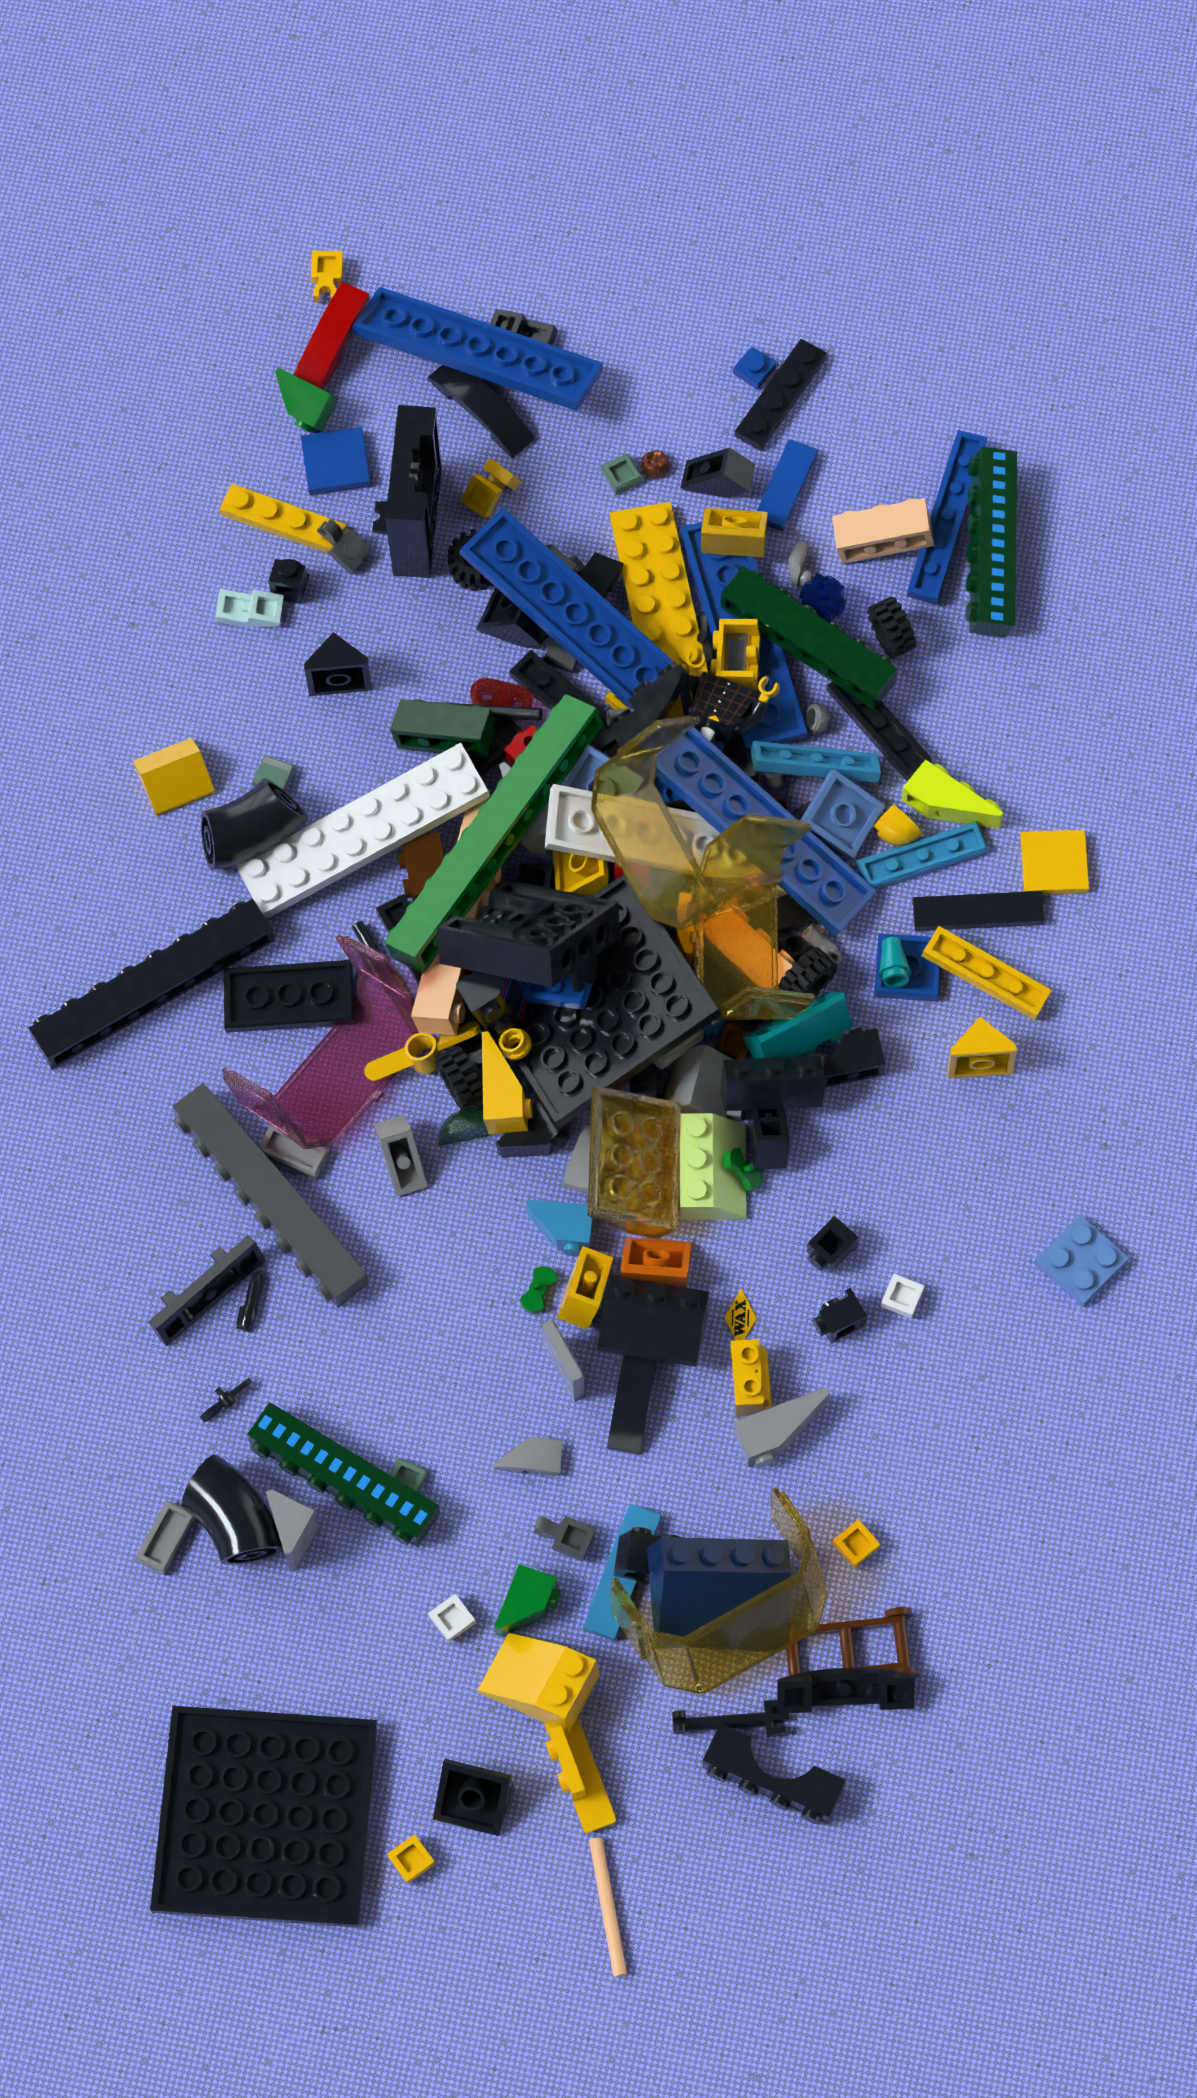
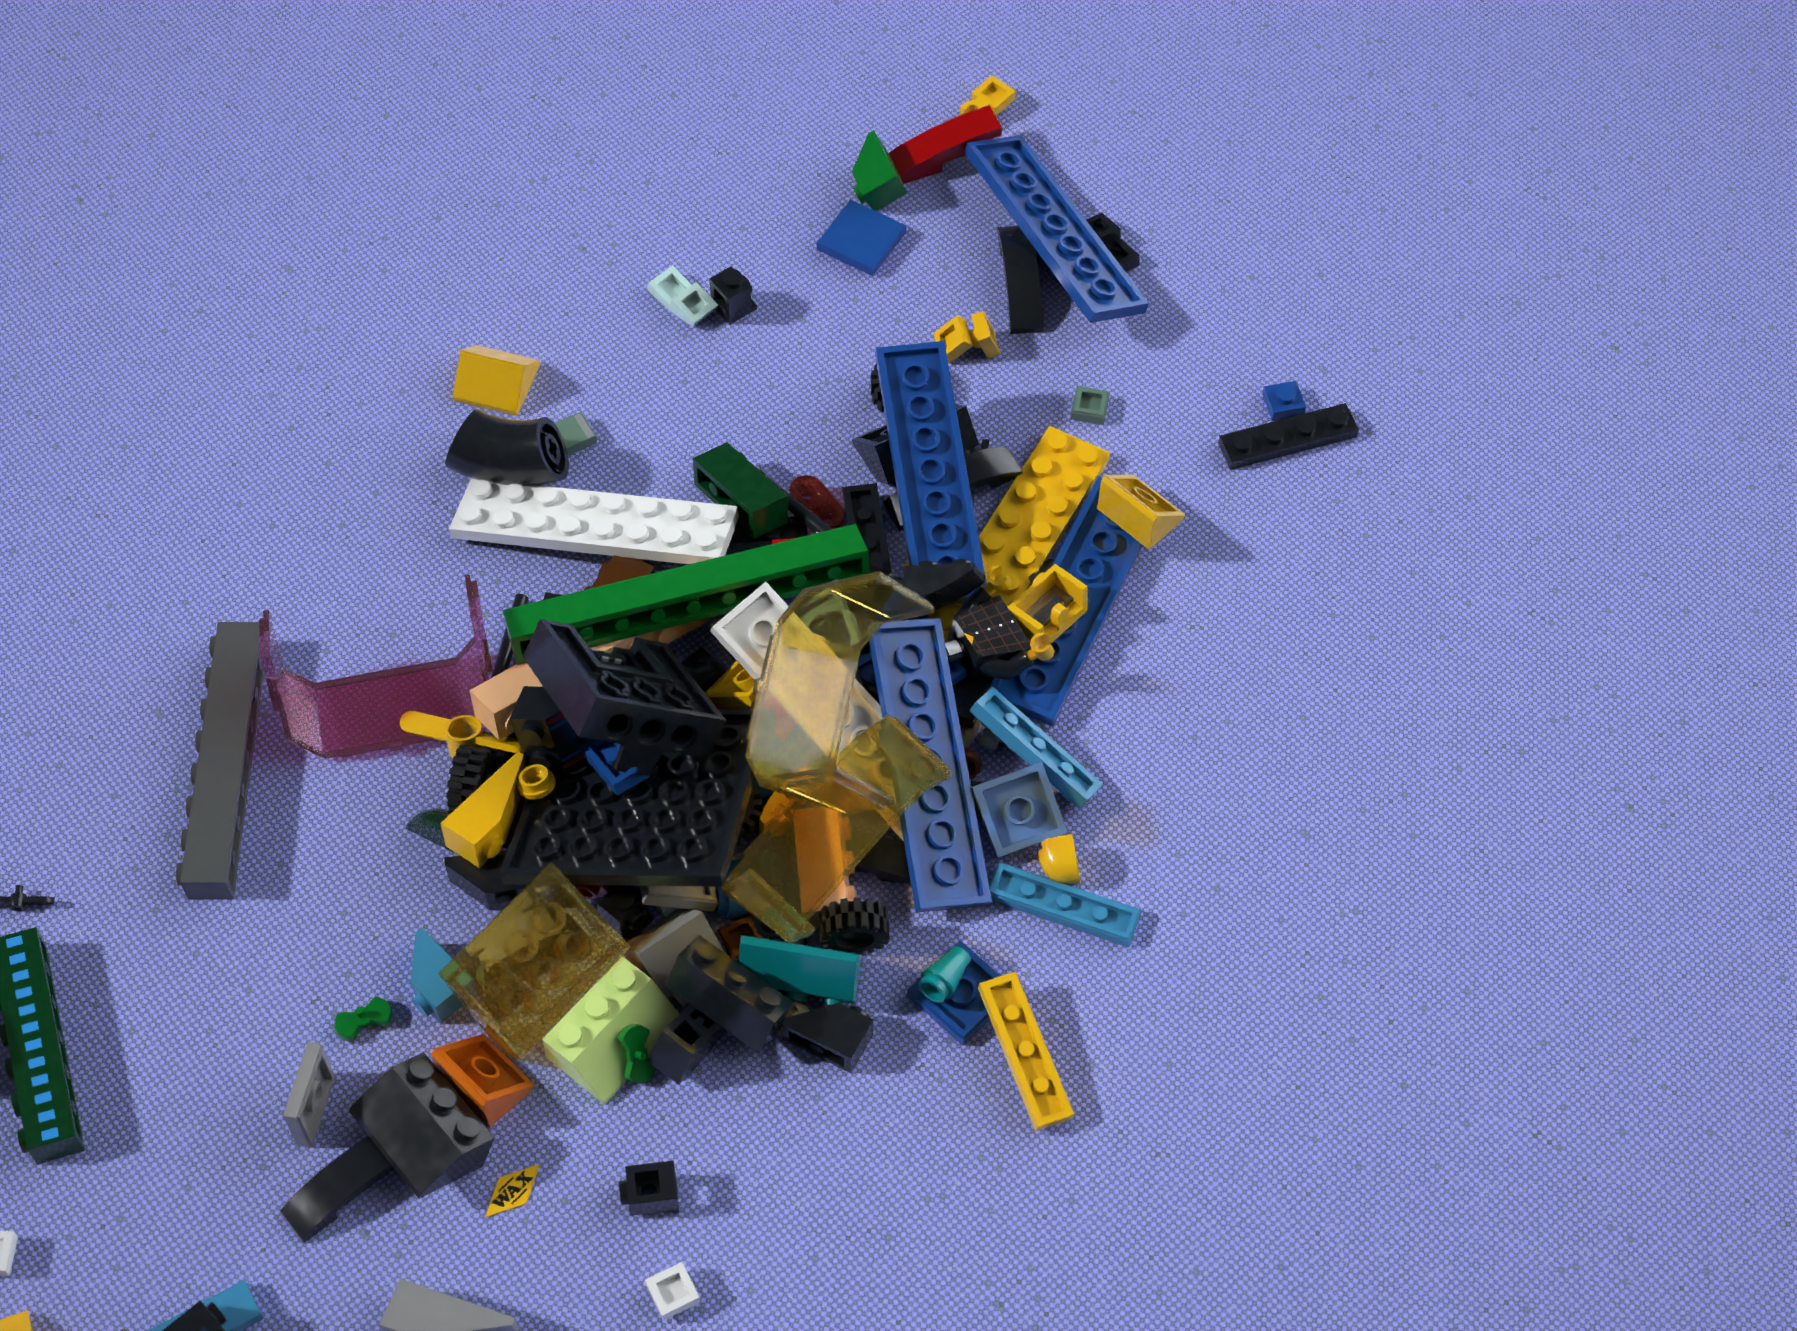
camera: 35 degrees right, 10 degrees down
(151, 983) = (309, 519): black brick -> none
(207, 1290) = (93, 795): black hinge -> none
(248, 1312) = (113, 842): black piece -> none
(275, 517) = (777, 252): yellow plate -> none
(288, 996) = (407, 611): black tile -> none
(291, 1155) = (286, 755): light grey tile -> none
(337, 669) = (695, 381): black slope -> none
(346, 547) = (803, 304): dark grey plate -> none
(400, 1155) = (361, 808): light grey slope -> none
(409, 1474) = (89, 1094): sand green tile -> none
(413, 492) = (886, 283): black piece -> none
(527, 1600) = (66, 1291): green slope -> none
(533, 1455) = (207, 1163): light grey slope -> none
(570, 1537) = (163, 1265): dark grey plate -> none
(585, 1288) = (394, 1044): yellow slope -> none
(655, 464) = (1126, 417): copper piece -> none
(718, 474) = (1173, 459): black slope -> none
(750, 1377) = (460, 1251): yellow window -> none
(787, 483) = (1227, 509): blue tile -> none
(794, 946) = (871, 888): black plate -> none
(796, 560) = (1175, 575): light grey arm -> none
(809, 637) = (1126, 640): dark green brick -> none
(816, 718) = (1075, 716): light grey piece -> none
(818, 939) = (900, 913): light grey arm -> none
(824, 596) = (1169, 620): clear blue brick -> none
(840, 1317) = (596, 1263): black brick -> none
(883, 530) = (1276, 600): light nougat brick -> none
(883, 731) = (1127, 761): black plate -> none
(891, 627) = (1210, 684): black tyre -> none
(943, 798) = (1126, 865): neon yellow slope -> none
(945, 519) = (1348, 632): blue plate -> none
(978, 910) = (1072, 991): black tile -> none
(981, 1053) = (946, 1116): yellow slope -> none
(992, 542) = (1370, 679): dark green brick -> none
(1054, 861) = (1183, 1001): yellow tile -> none

